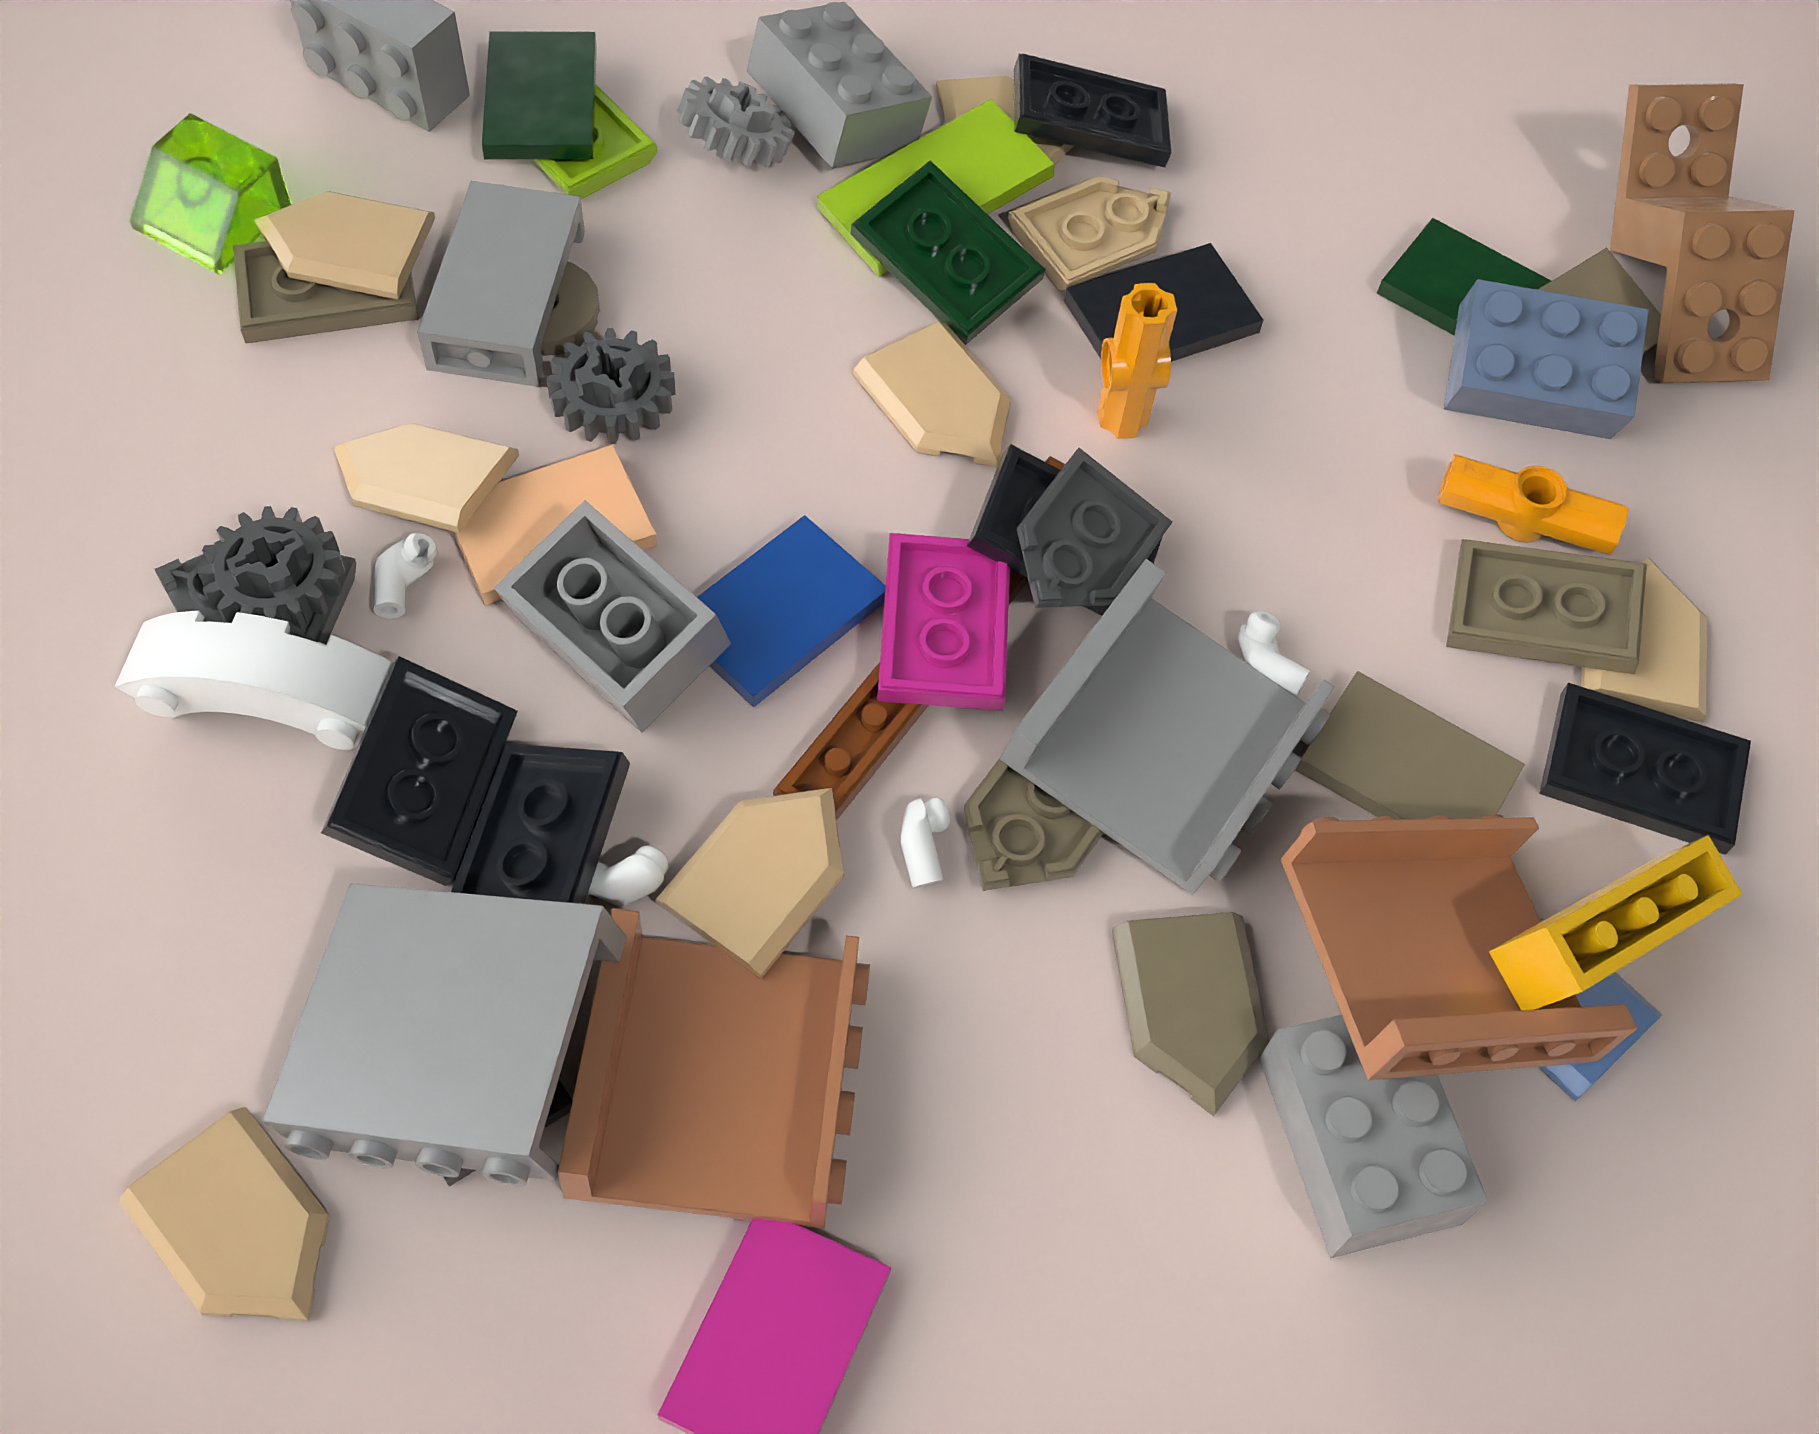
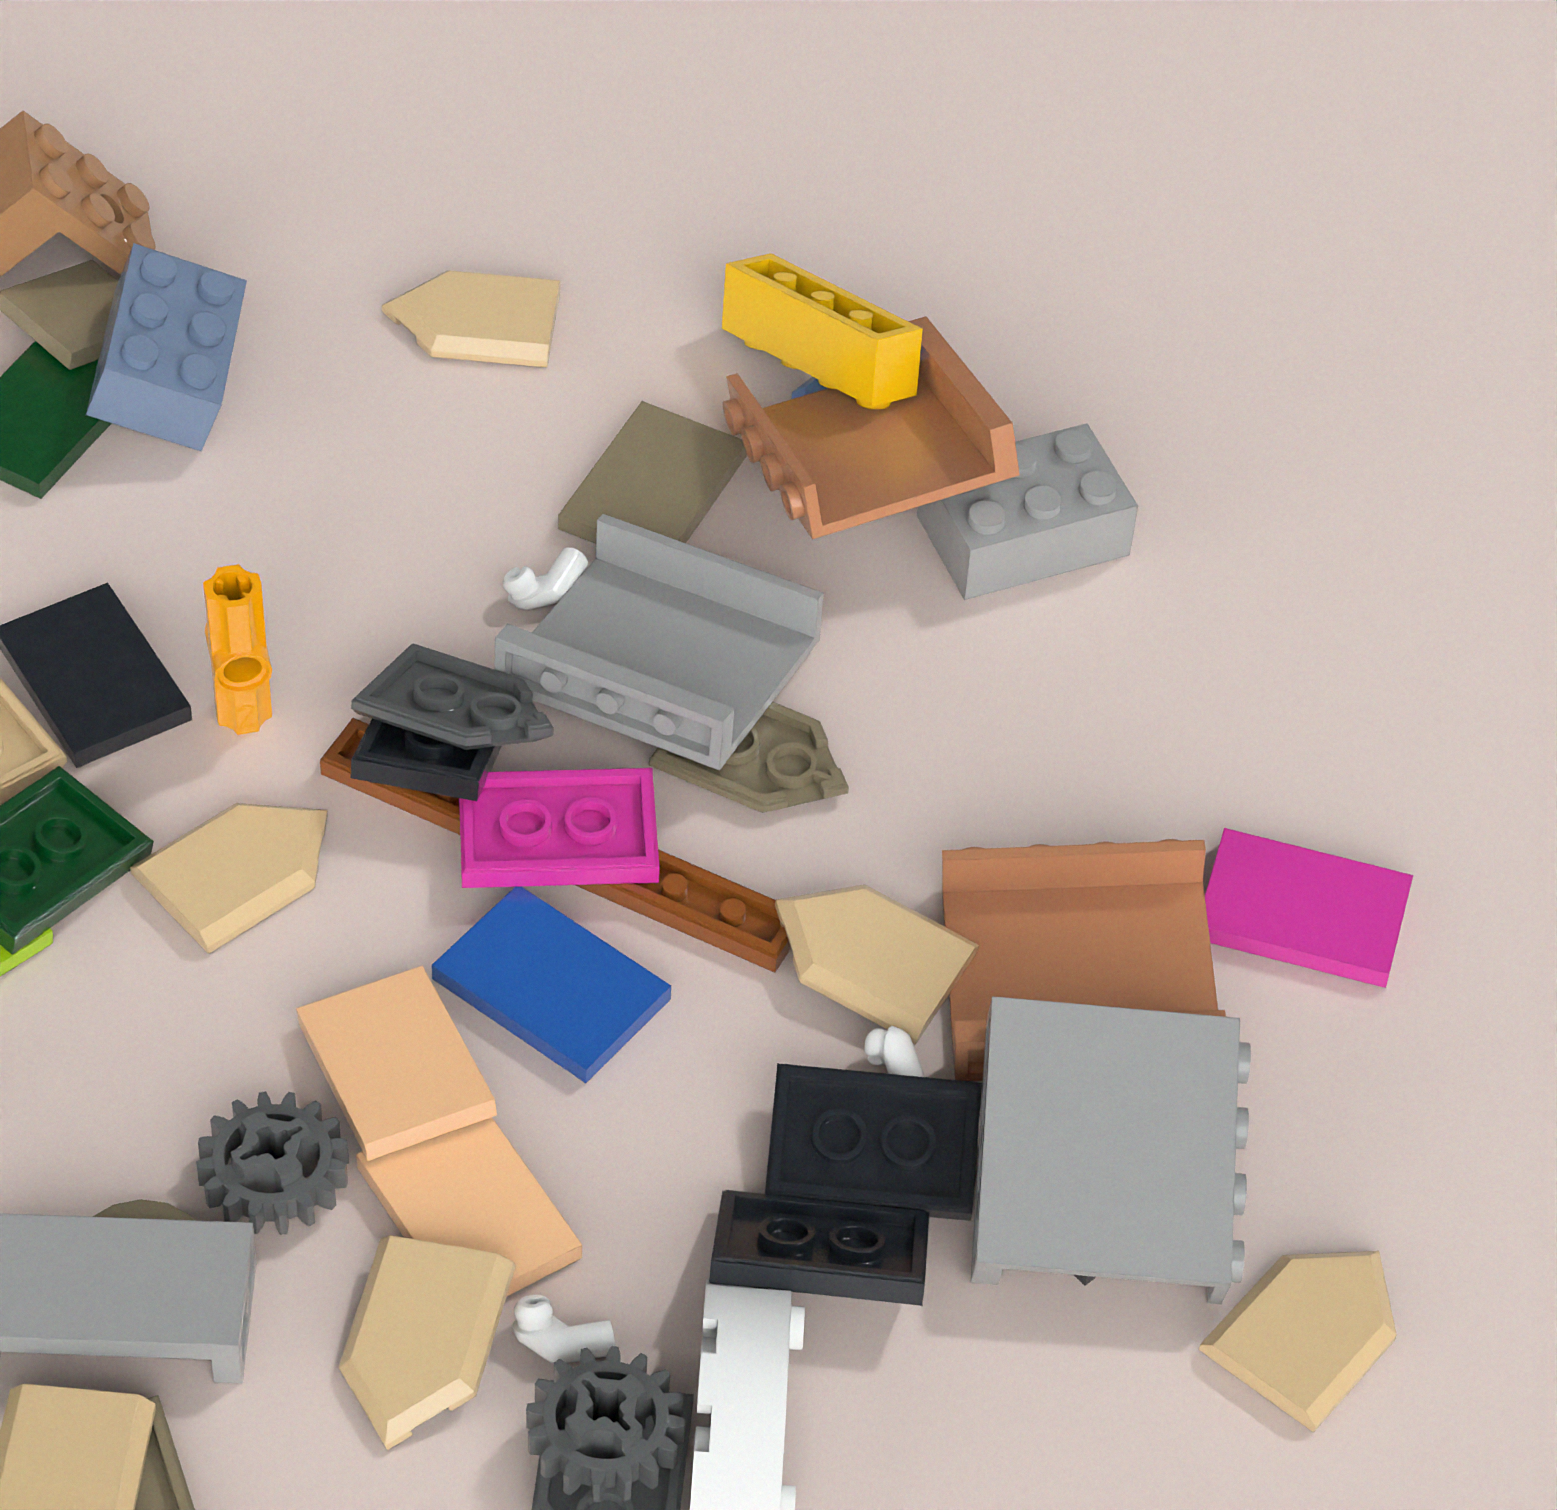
camera: 95 degrees left, 10 degrees down
(614, 615) = (615, 1091): light grey brick -> none
(700, 477) = (396, 1062): none -> light nougat tile
(918, 843) = (793, 840): white arm -> none
(1192, 1001) = (924, 641): dark tan tile -> none
(1533, 504) = (341, 377): light orange piece -> none
(1548, 606) = (459, 376): dark tan tile -> none
(1646, 767) = (621, 327): black tile -> none

